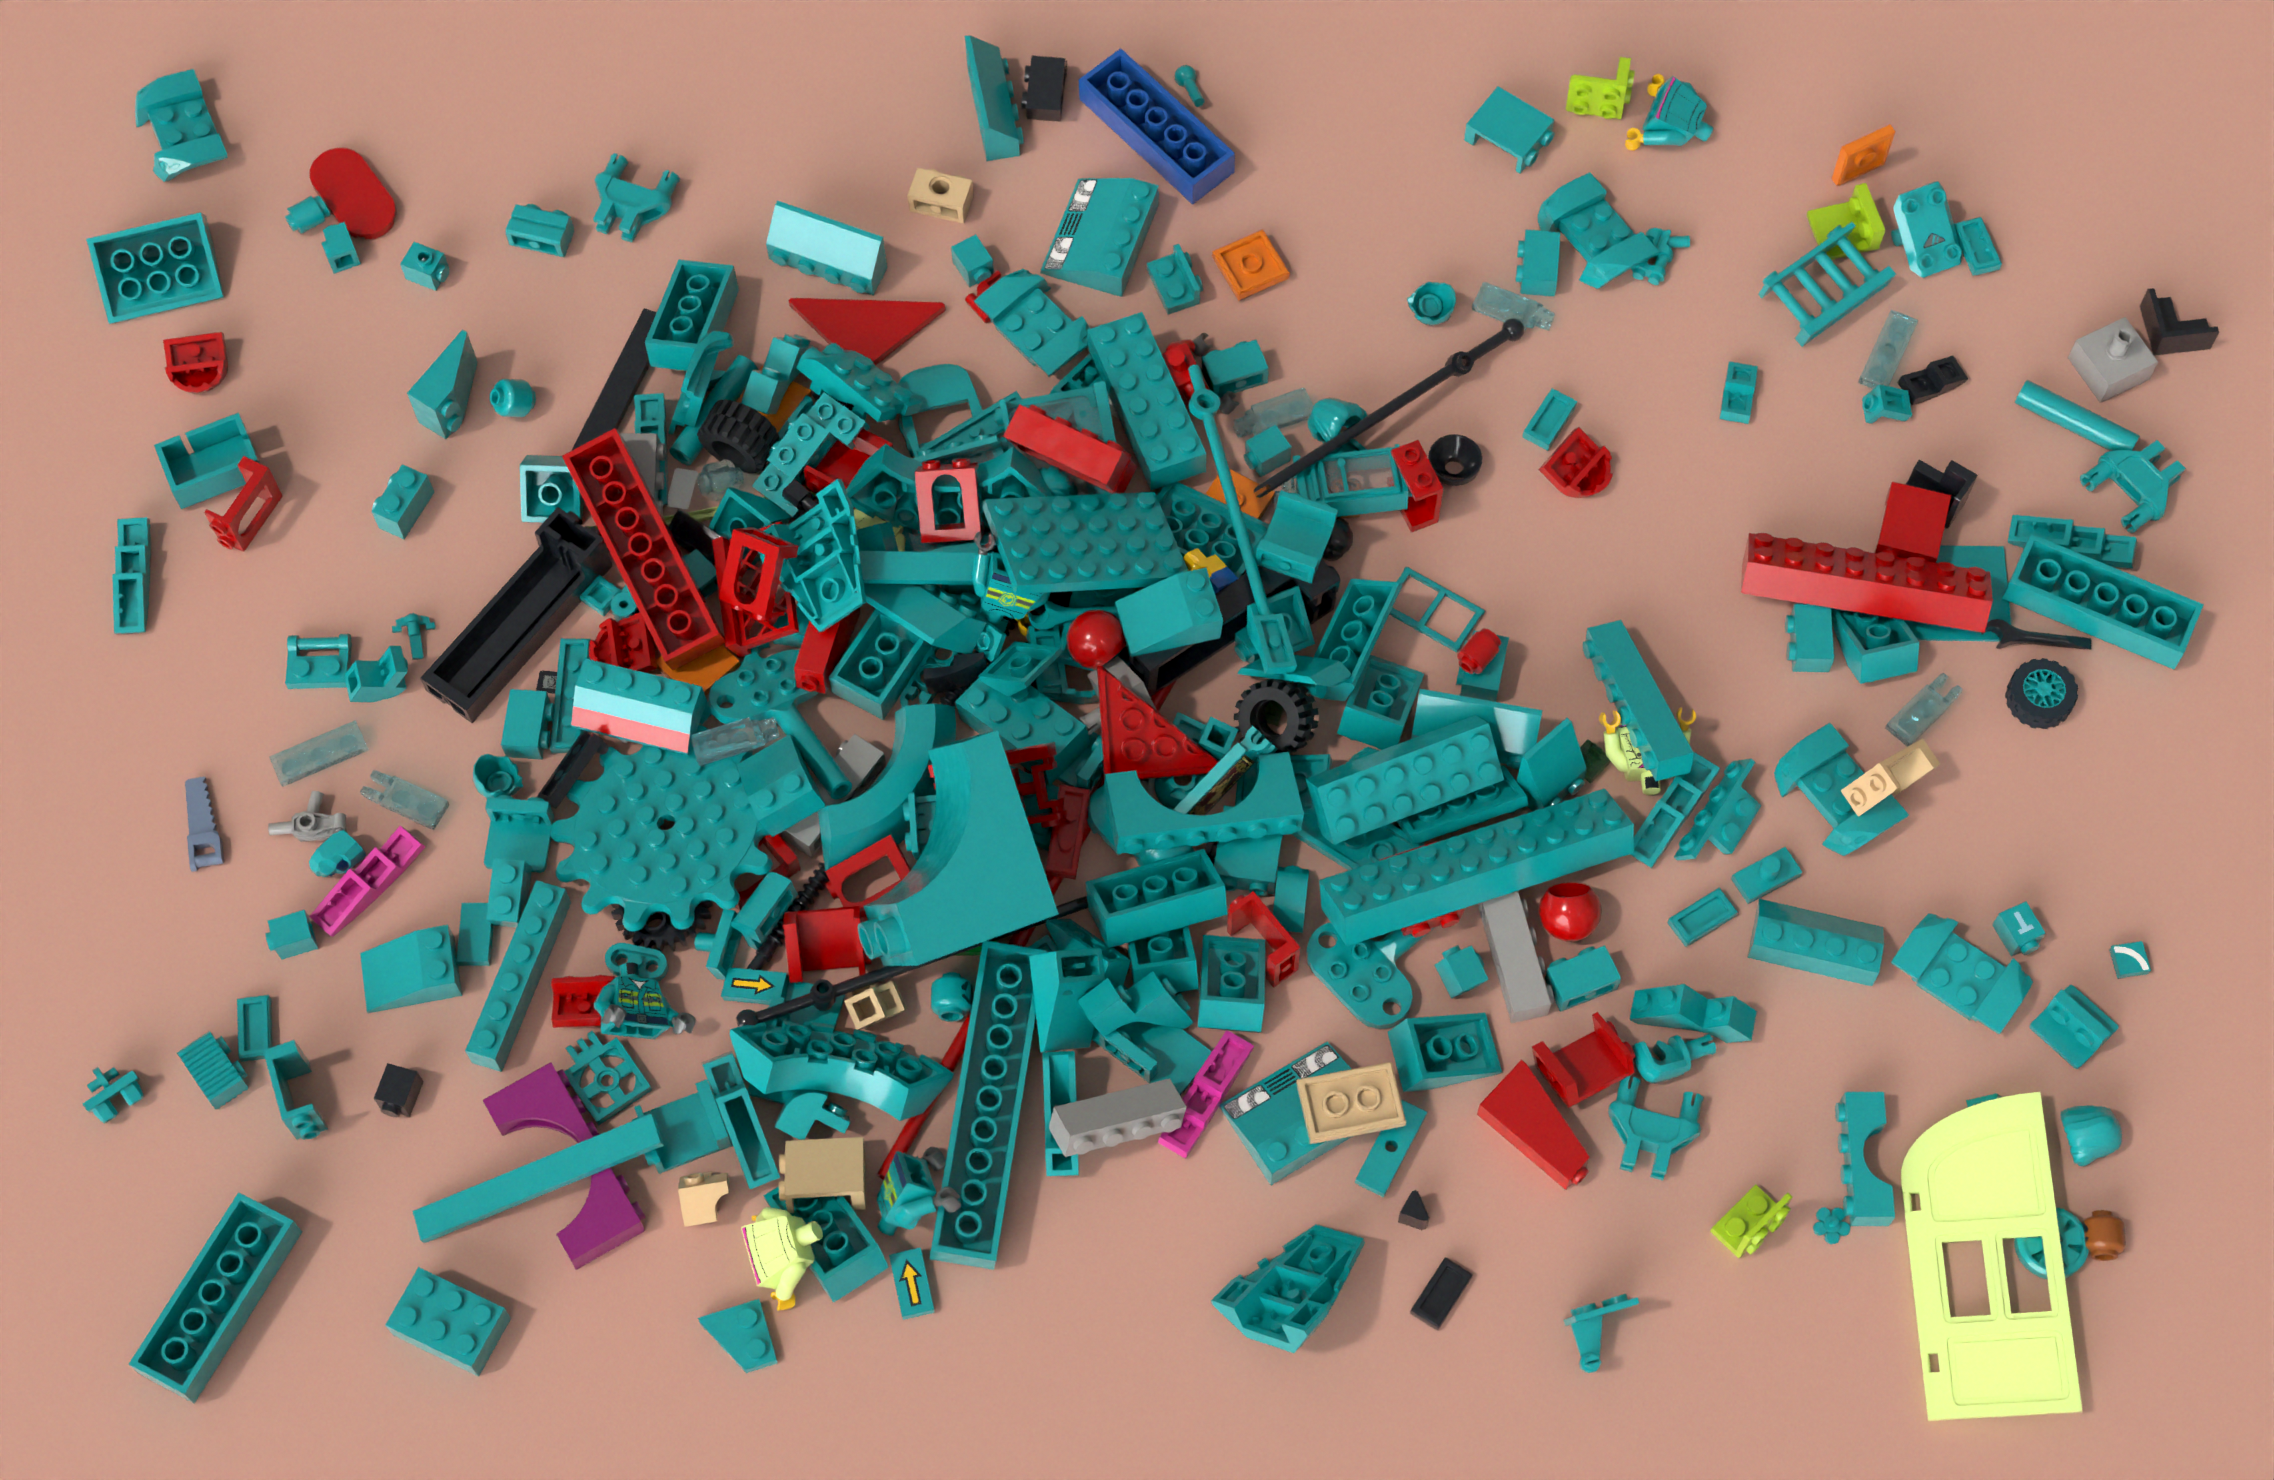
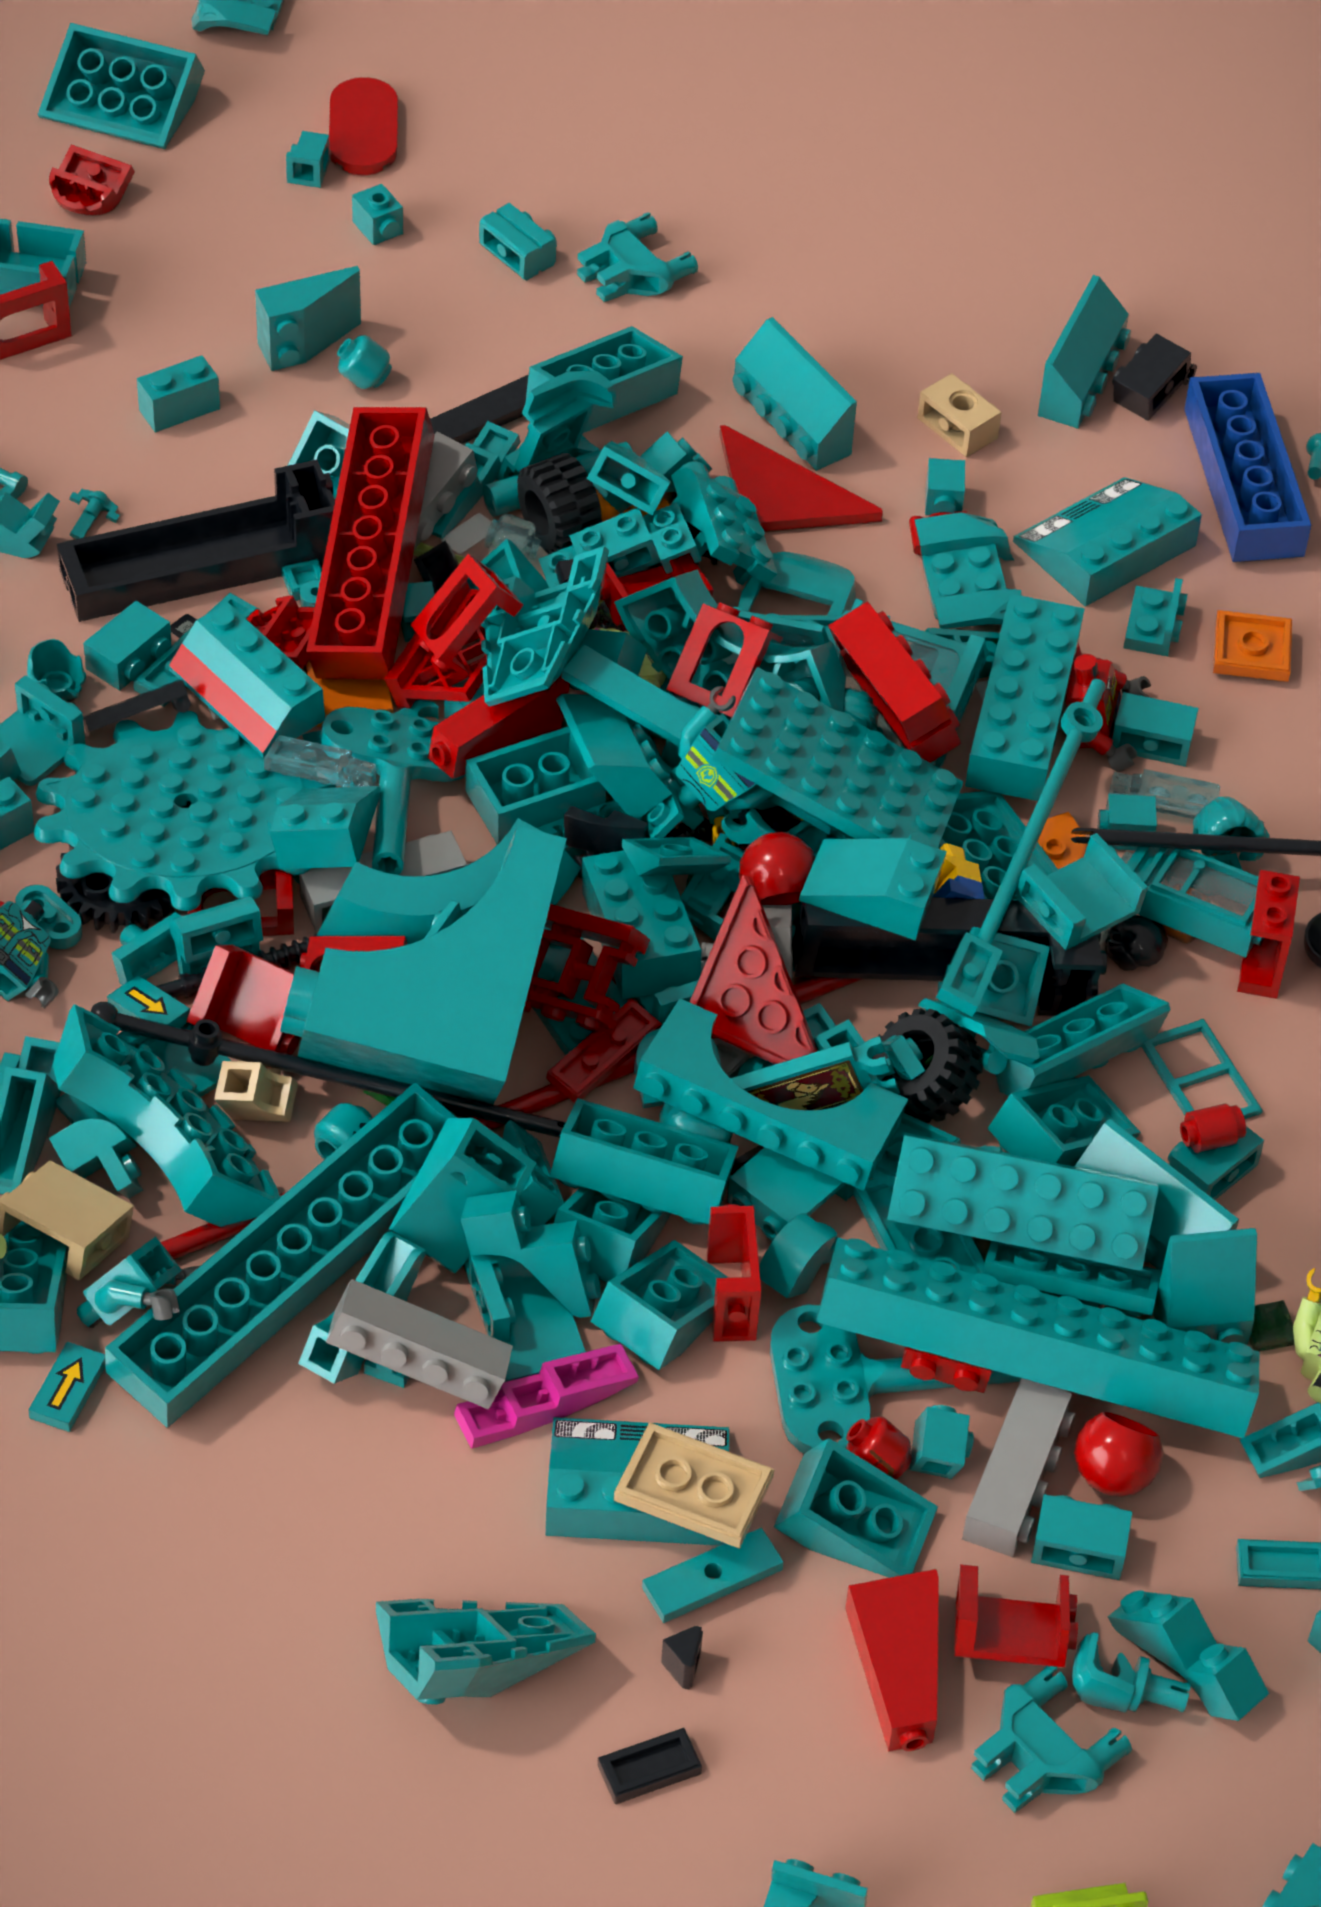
camera: 30 degrees right, 15 degrees down
(307, 214) = (302, 116): teal brick -> none
(783, 395) = (629, 477): none -> teal slope
(1265, 723) = (904, 1056): none -> teal plate
(1429, 999) = (880, 1445): none -> red head

